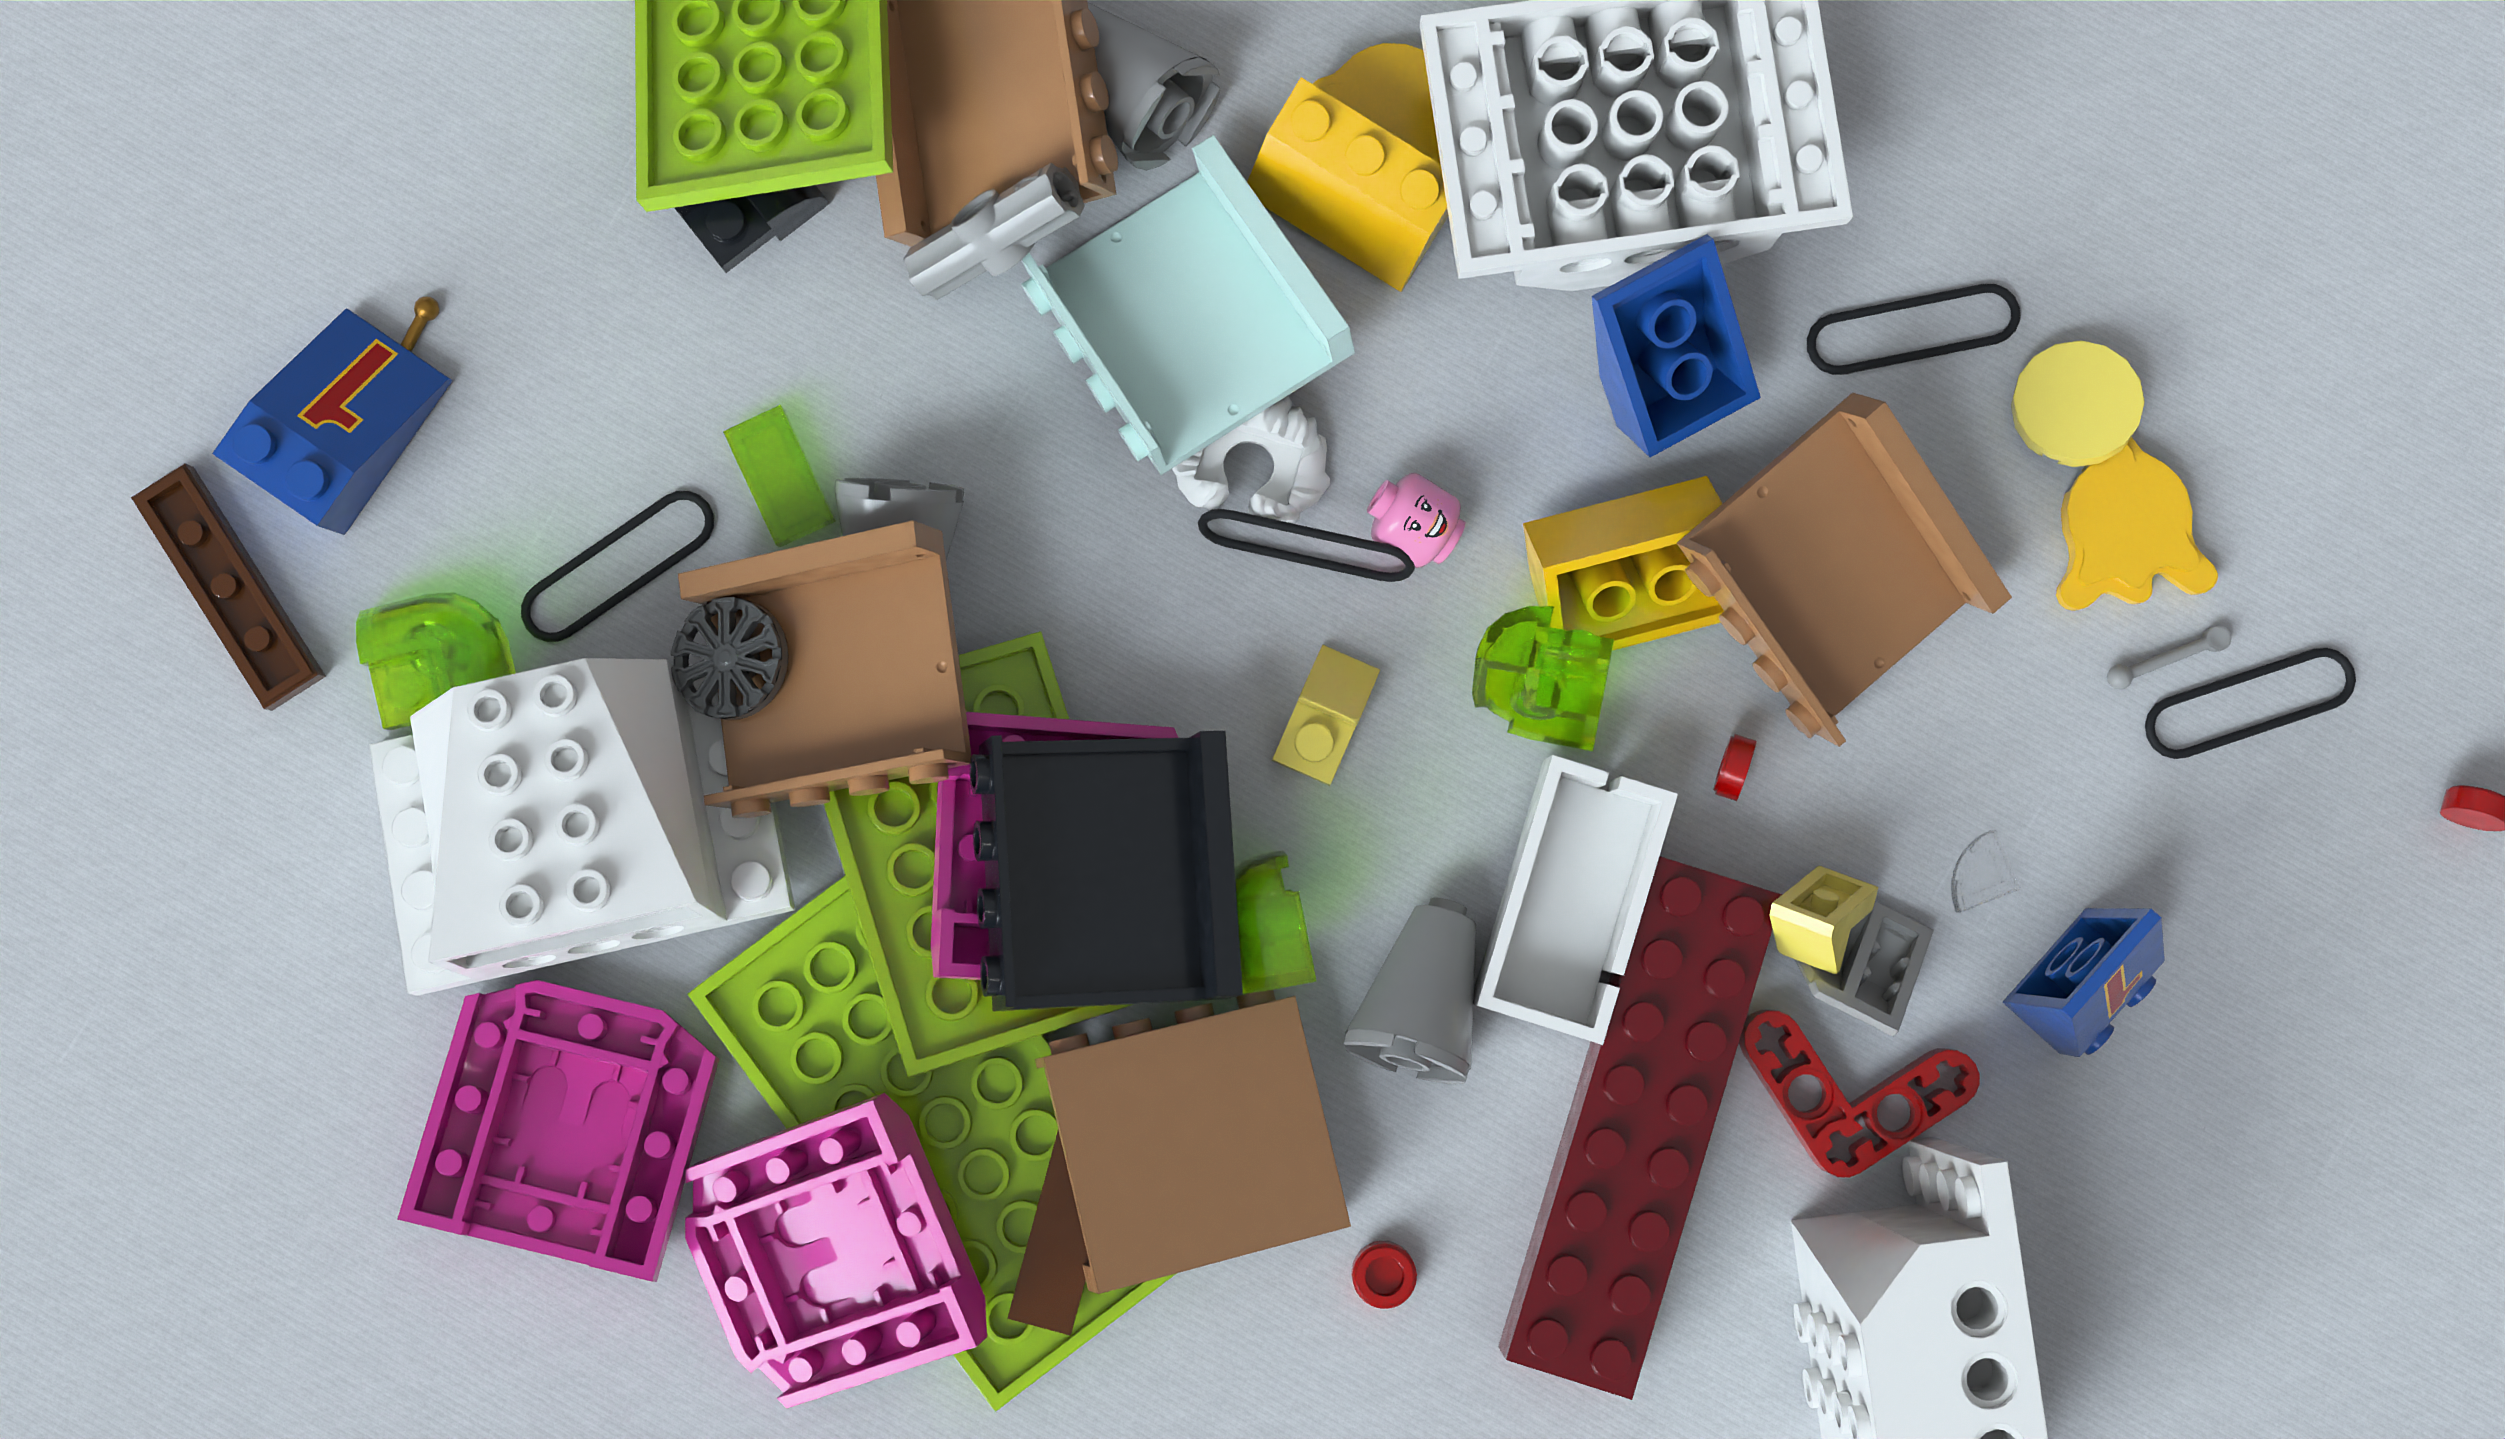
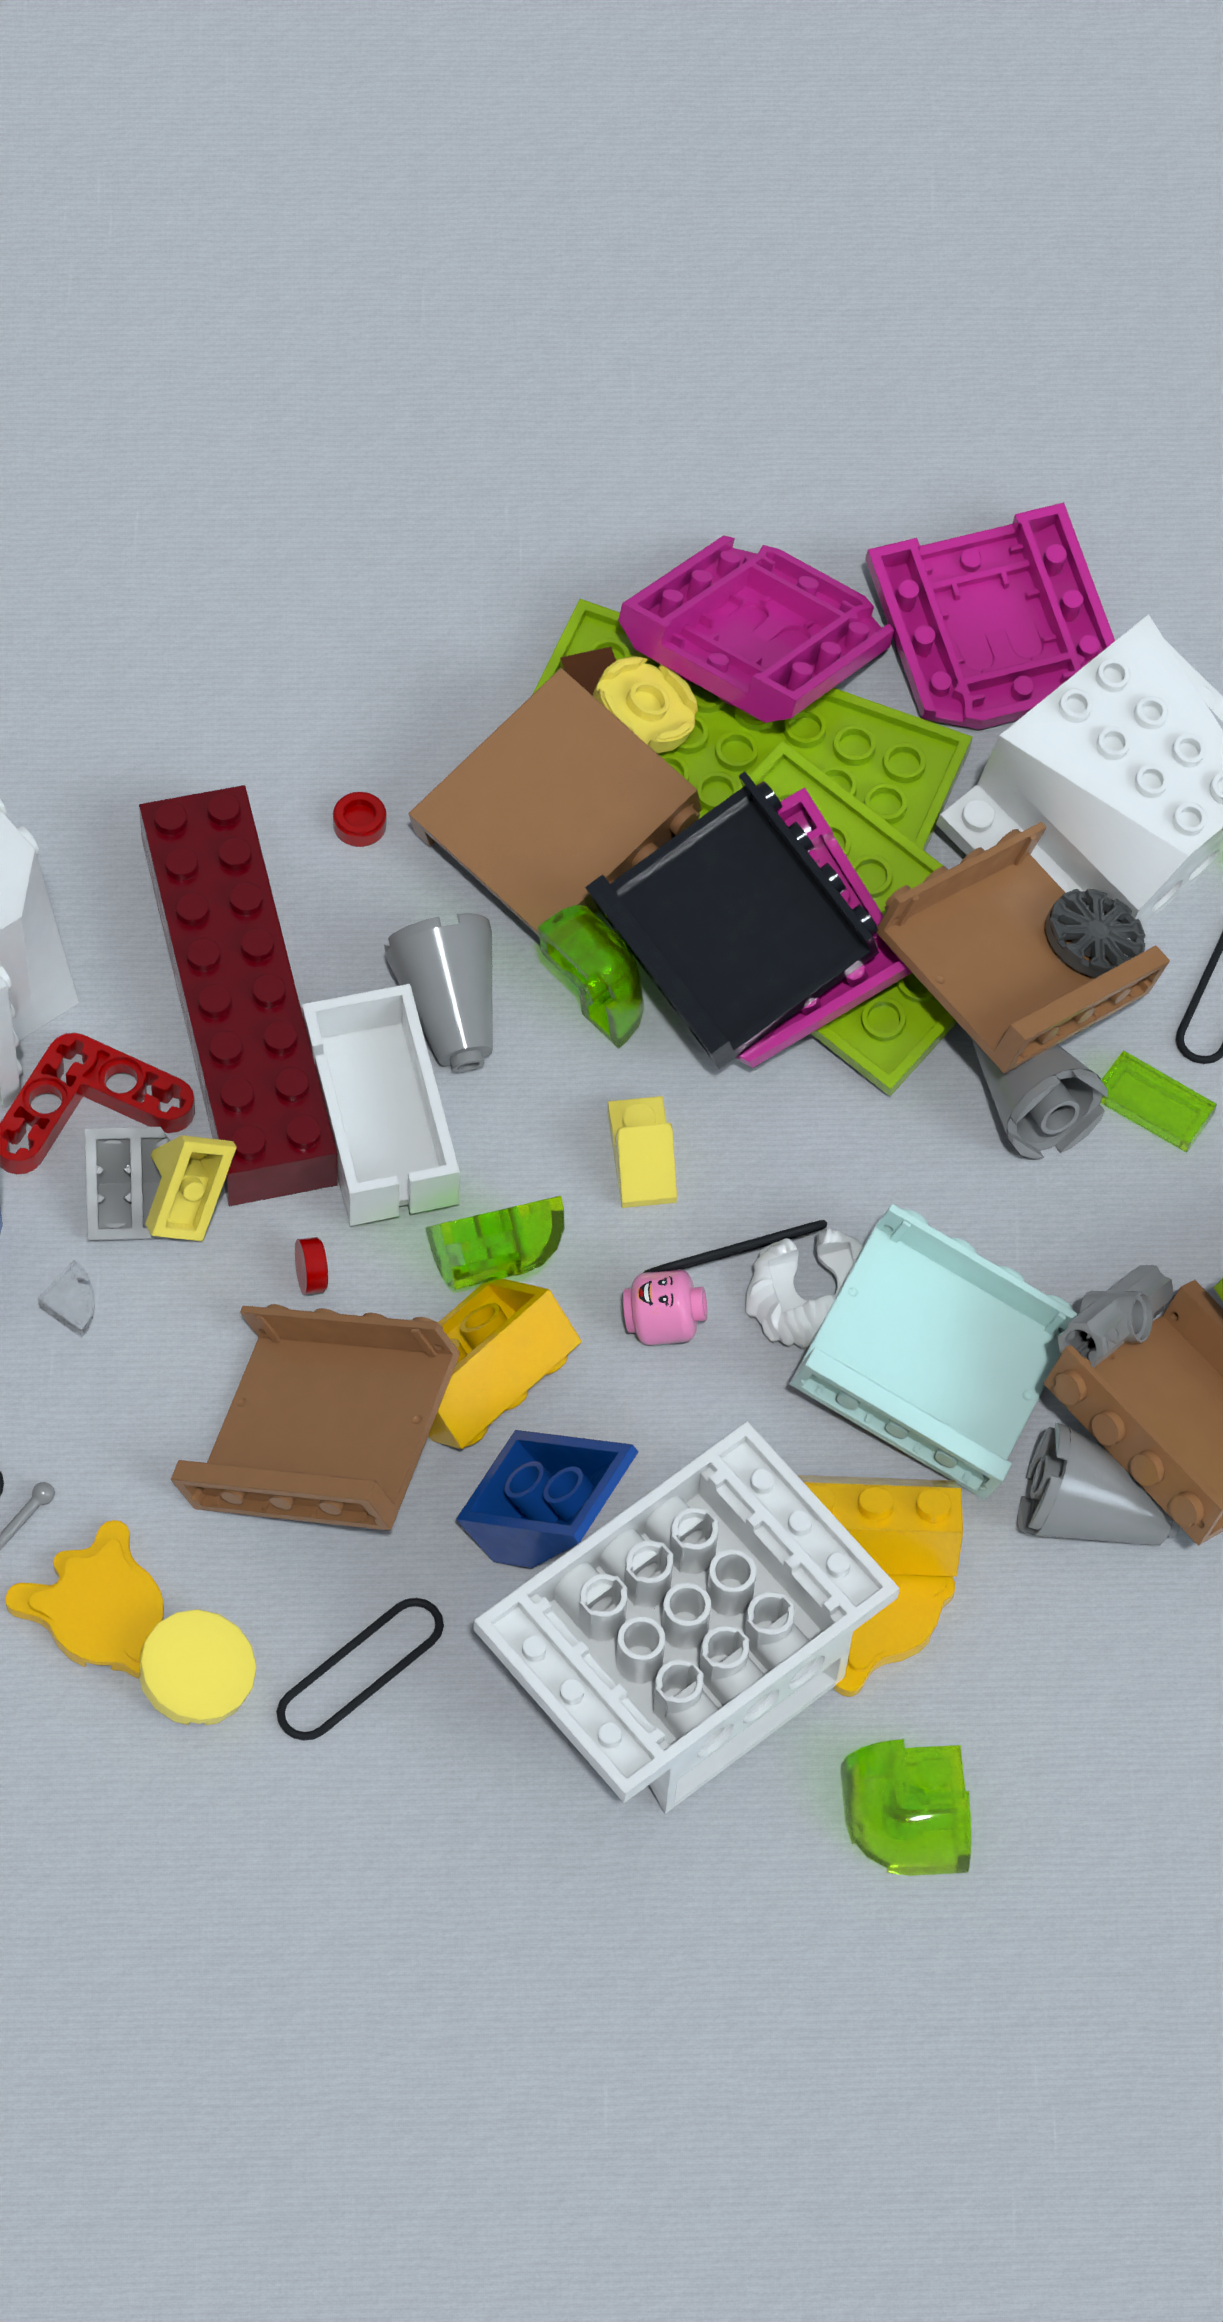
camera: 150 degrees right, 25 degrees down
(1018, 1218) = (649, 701): none -> light yellow tile

